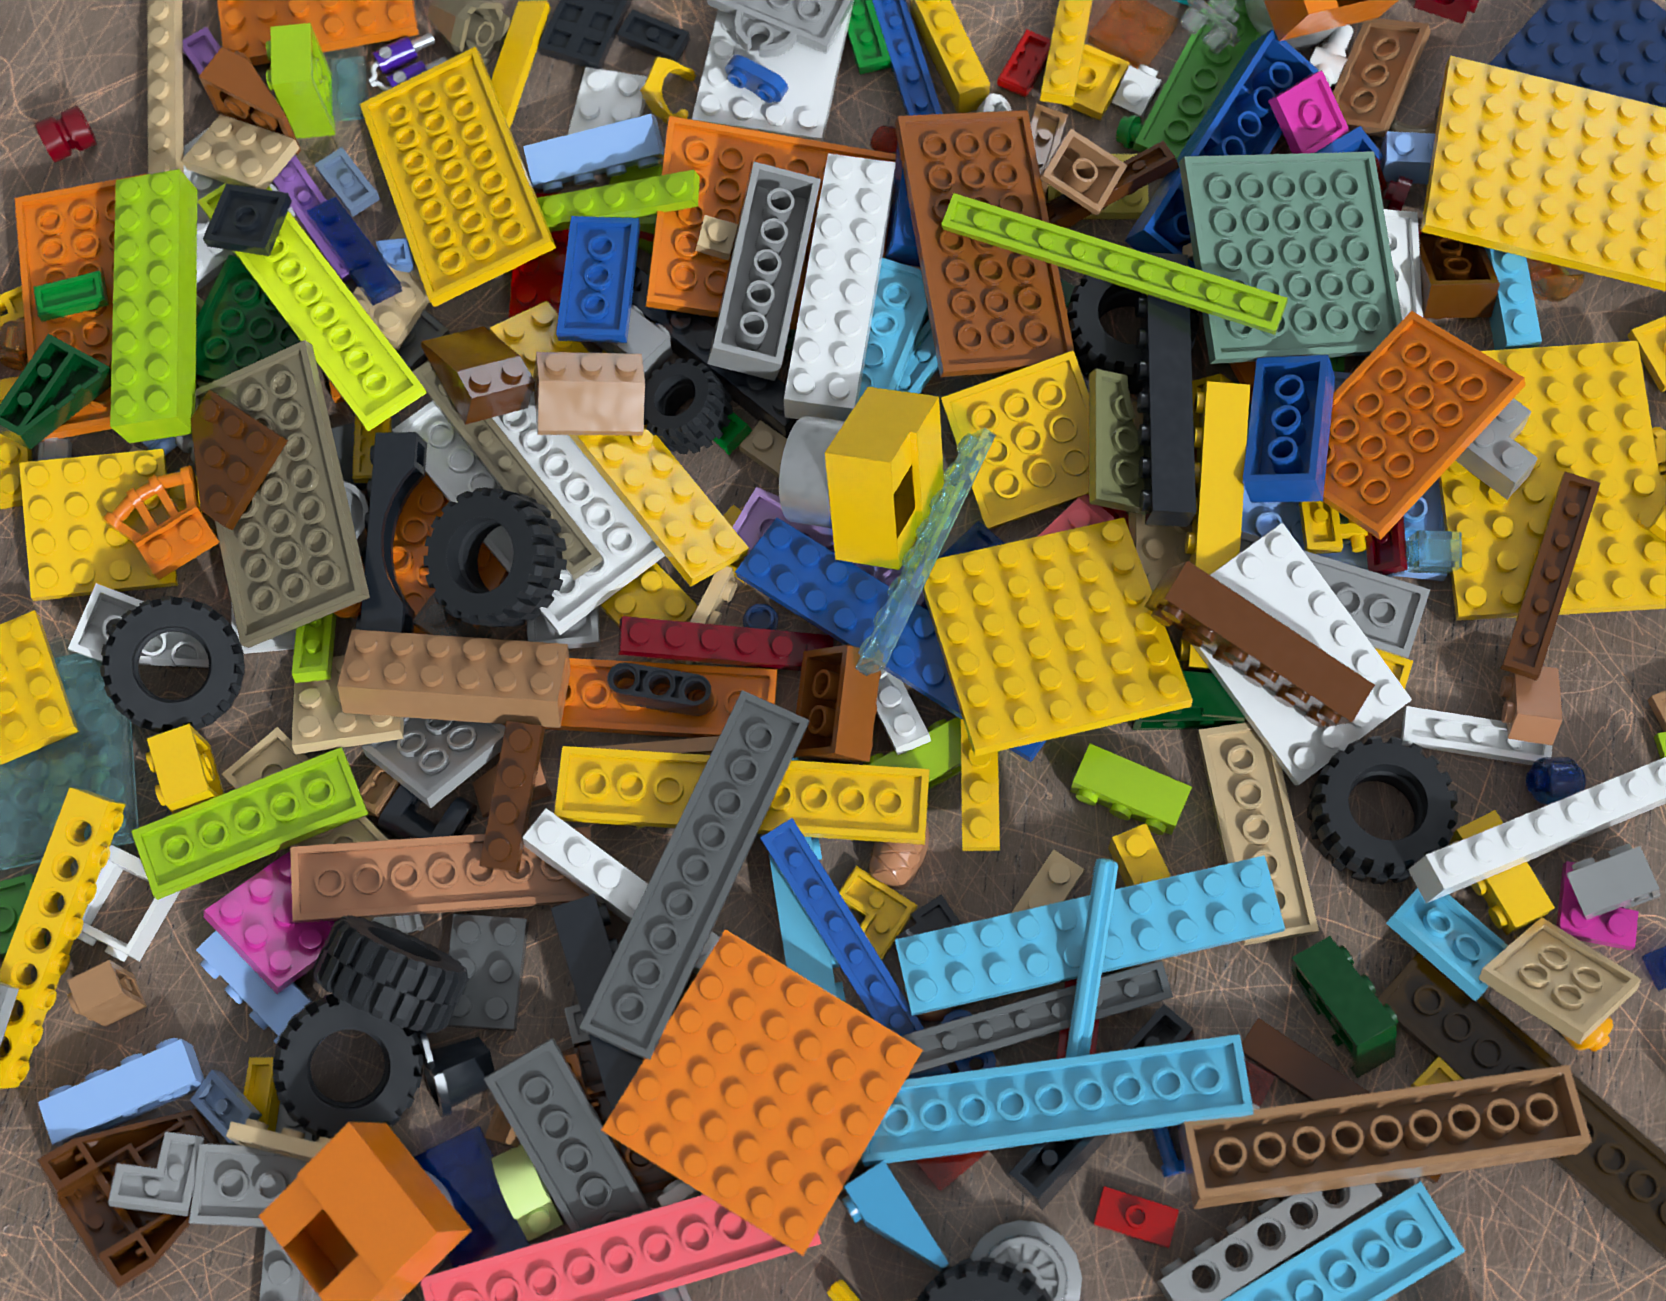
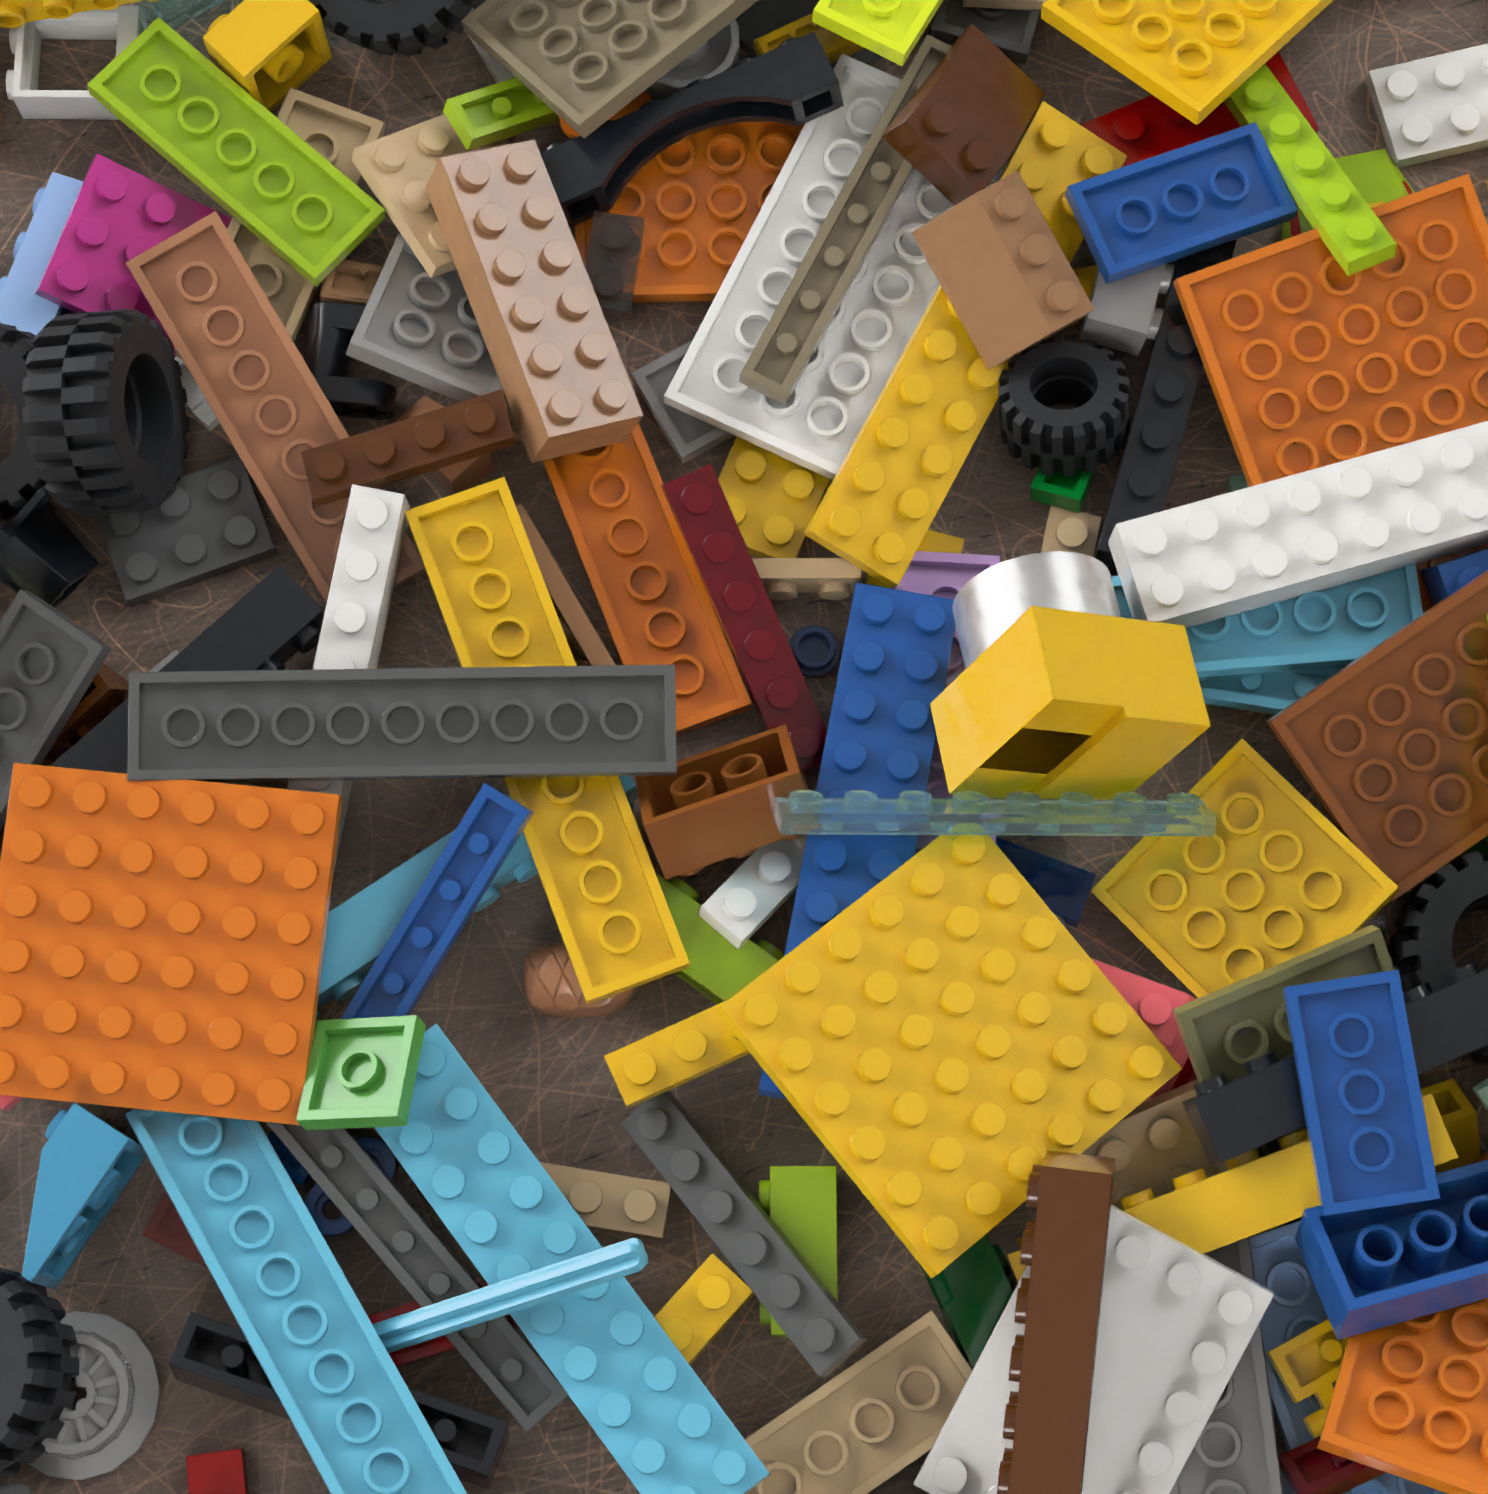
camera: 60 degrees right, 5 degrees up
(455, 552) = (746, 302): black tyre -> none
(594, 152) = (1378, 108): light blue brick -> none
(673, 700) = (646, 541): black beam -> none
(716, 237) = (1320, 324): tan plate -> none
(764, 271) = (1300, 409): light grey brick -> none
(883, 908) = (488, 997): yellow tile -> none
(908, 995) = (361, 1073): none -> bright green plate
(931, 917) = (497, 1064): black plate -> none
(1106, 814) = (744, 1233): none -> dark grey plate
(1191, 416) = (1360, 1093): none -> blue plate

